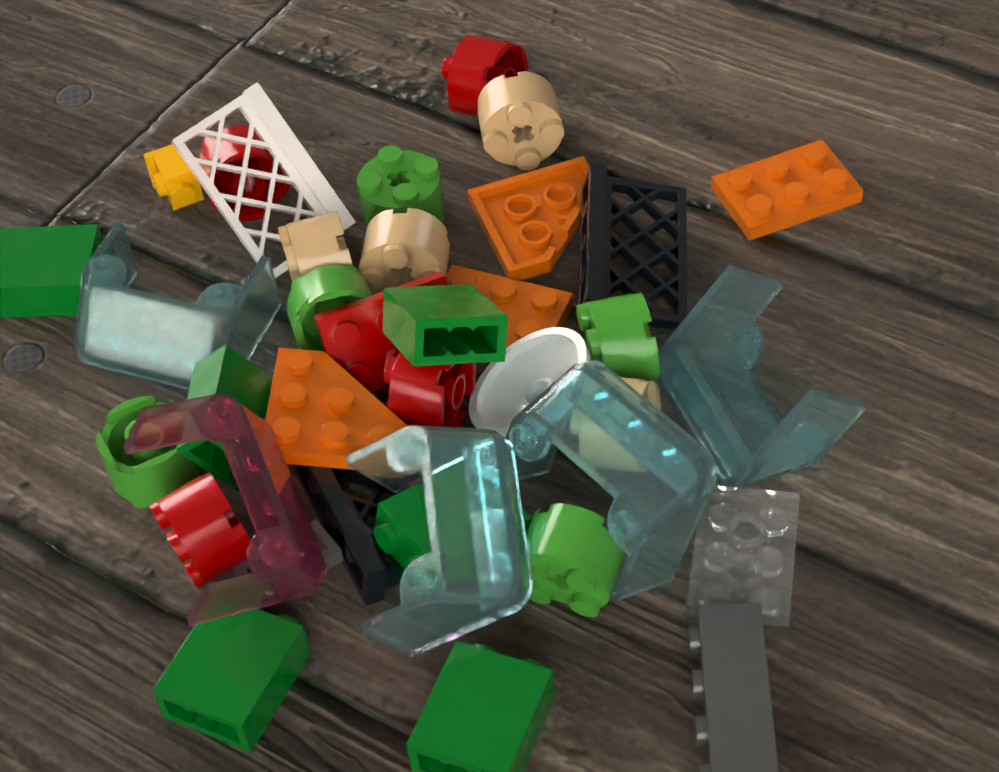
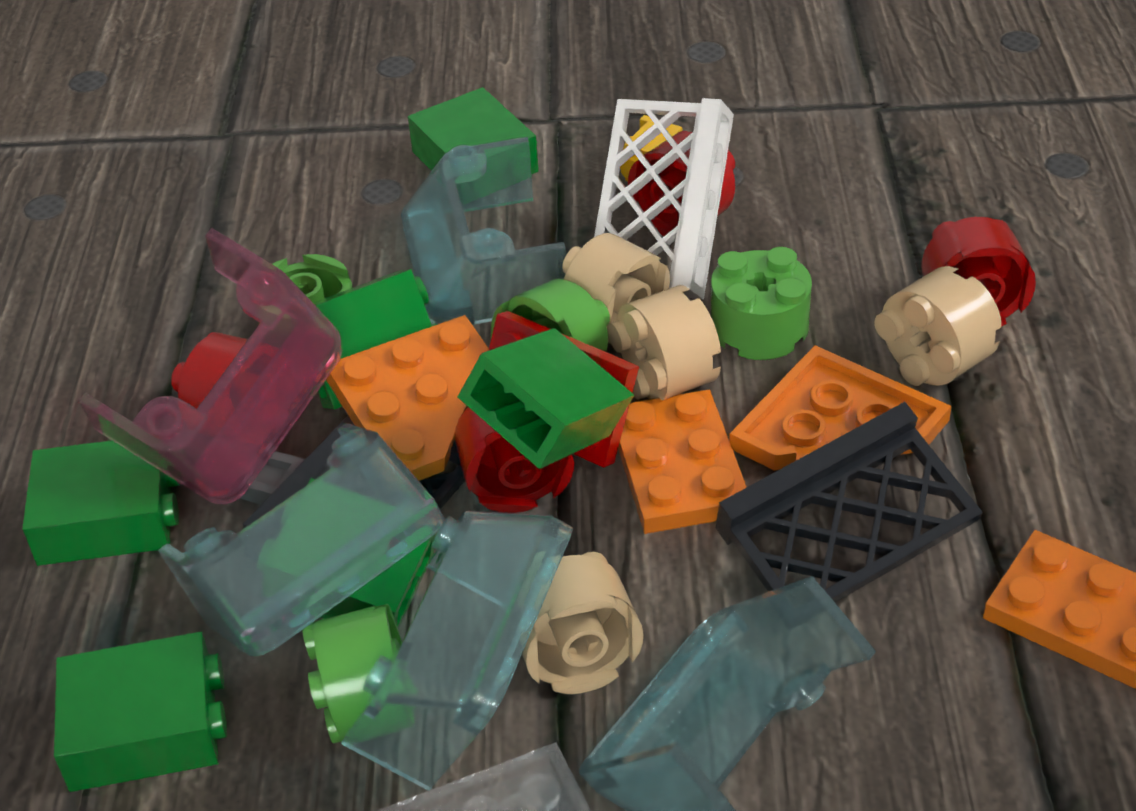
camera: 55 degrees right, 5 degrees down
(527, 371) = (602, 517): white dish -> none
(621, 335) = (687, 562): bright green brick -> none

